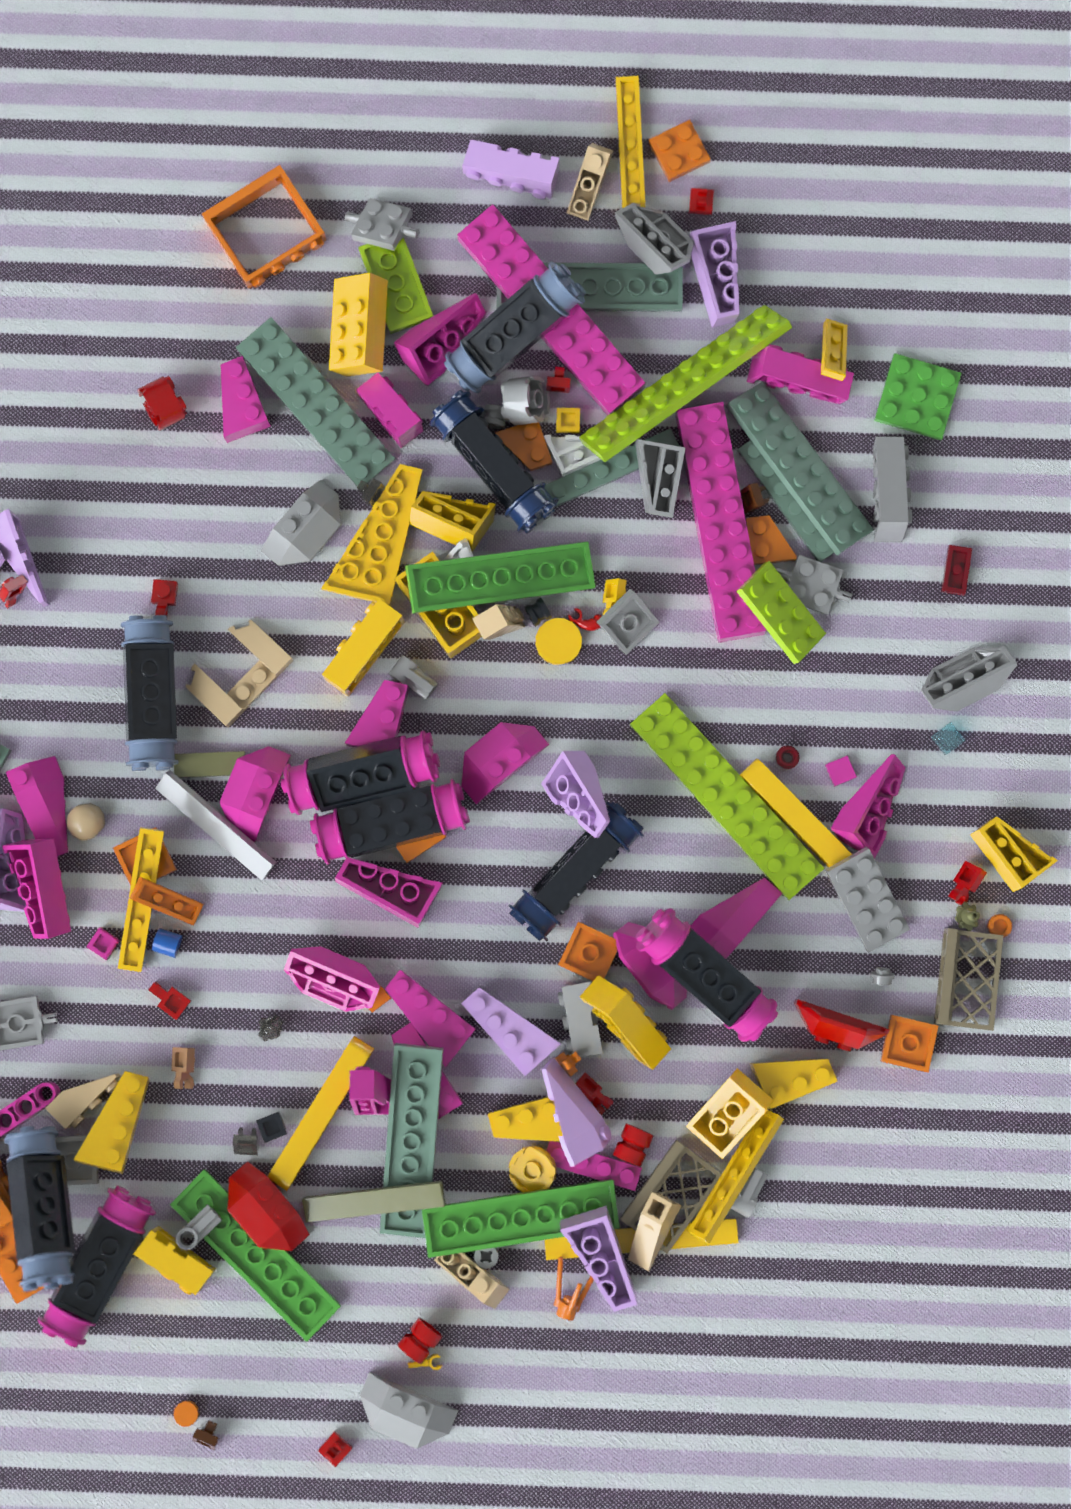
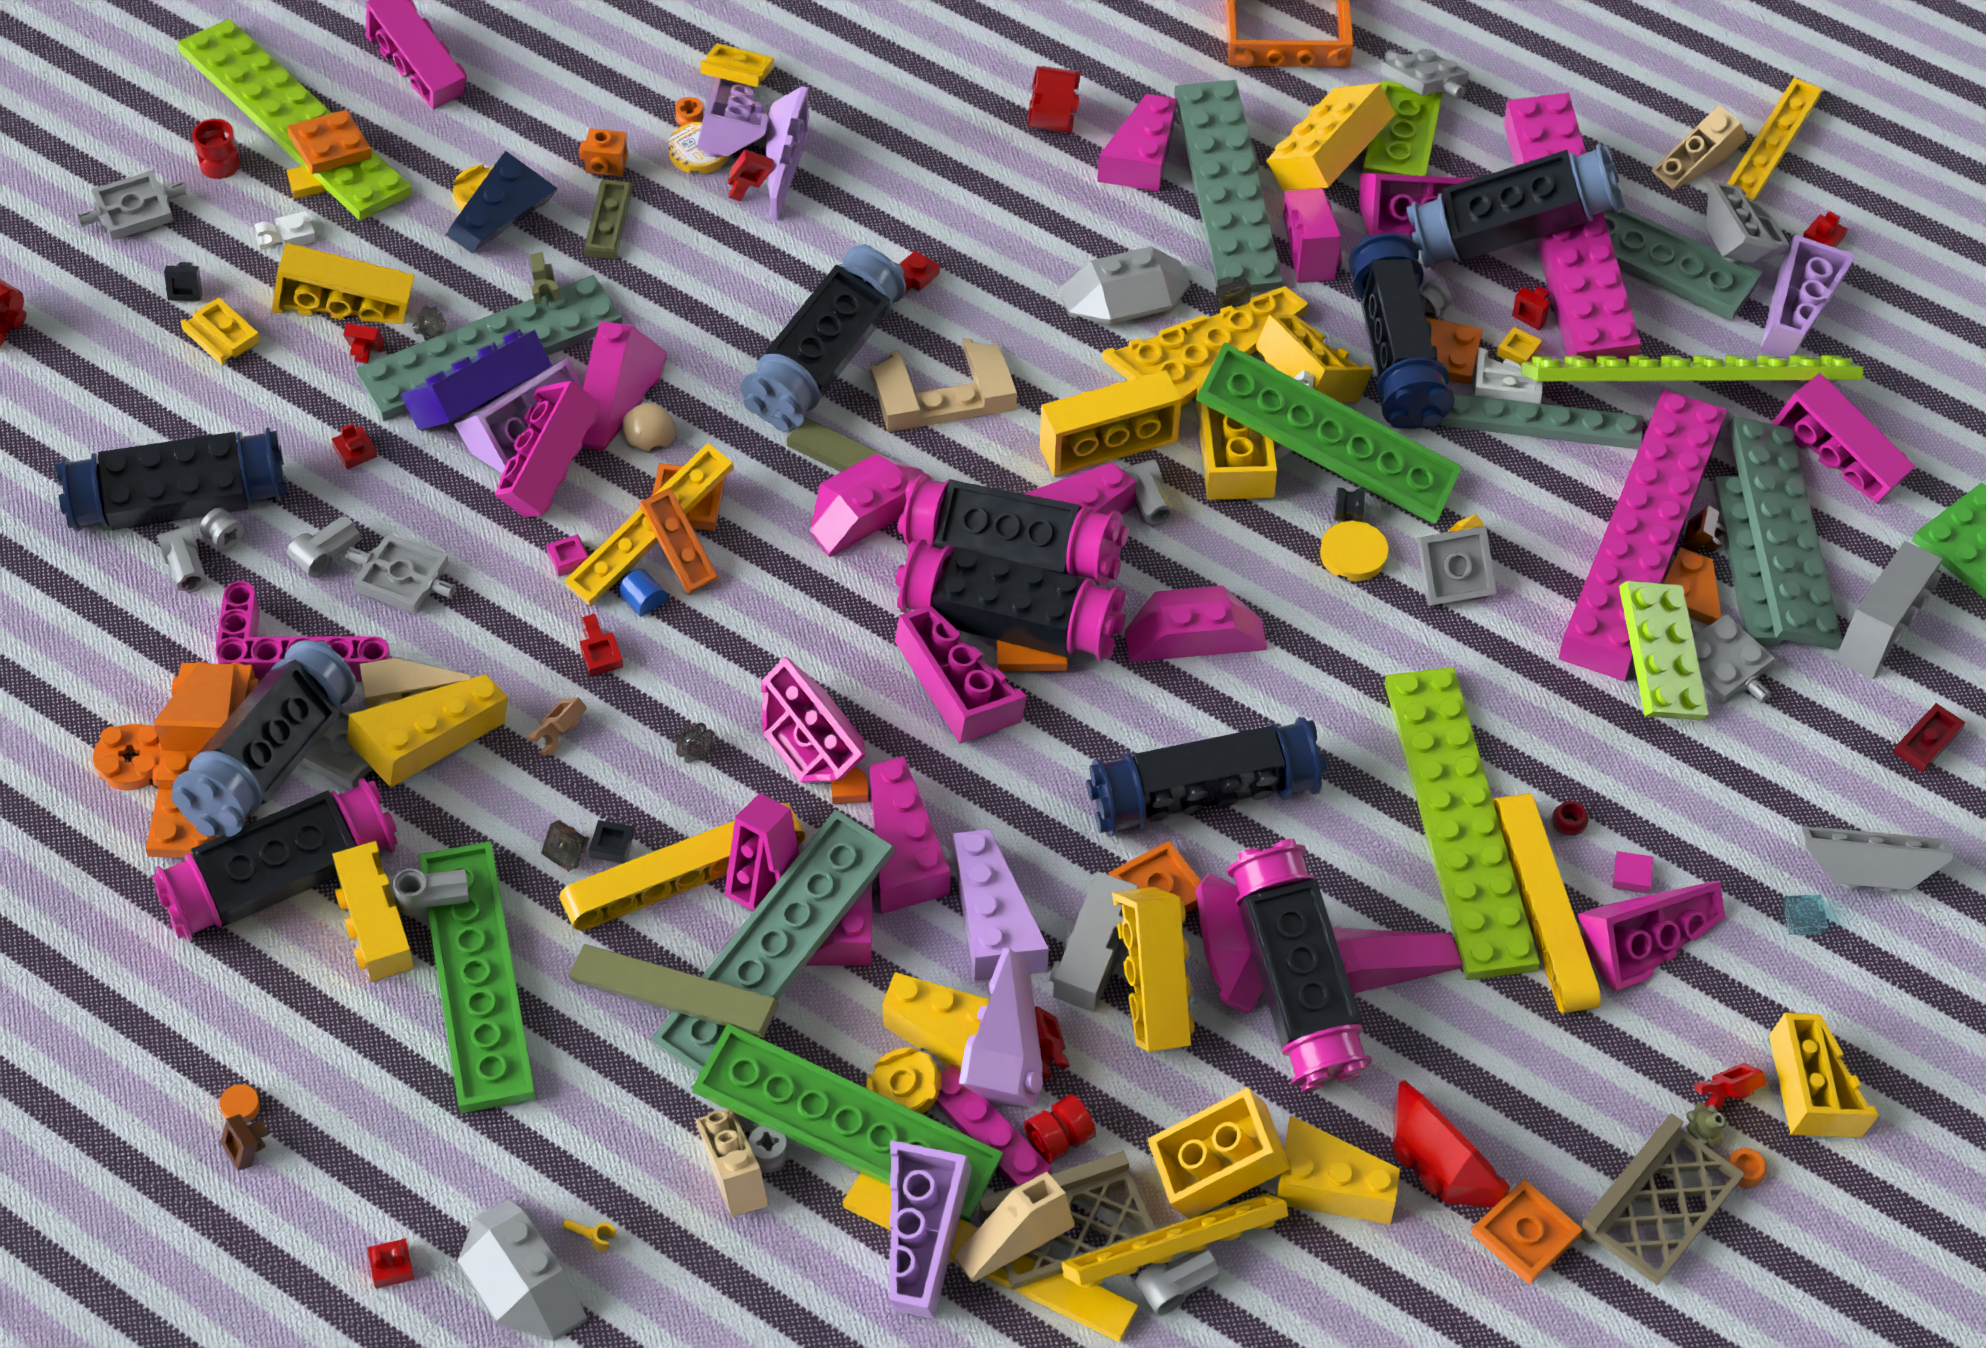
camera: 30 degrees right, 30 degrees down
(215, 825) = (797, 509): tile -> none
(264, 1210) = (528, 931): red wedge -> none
(420, 1340) = (604, 1192): red wheel -> none
(499, 621) = (1293, 469): tan slope -> none
(511, 169) = (1617, 98): lavender wedge -> none
(524, 400) = (1480, 294): light grey brick -> none
(568, 1062) = (1042, 980): orange plate -> none
(569, 1304) = (829, 1269): orange plant -> none
(577, 789) = (1269, 685): lavender wedge -> none
(589, 625) = (1403, 553): red arm -> none
(659, 475) = (1600, 438): light grey wedge -> none
(679, 150) = (1828, 179): orange plate -> none
(834, 349) = (1904, 431): yellow tile -> none
(867, 899) = (1577, 1022): light grey plate -> none
(882, 976) = (1540, 1129): light grey plate -> none

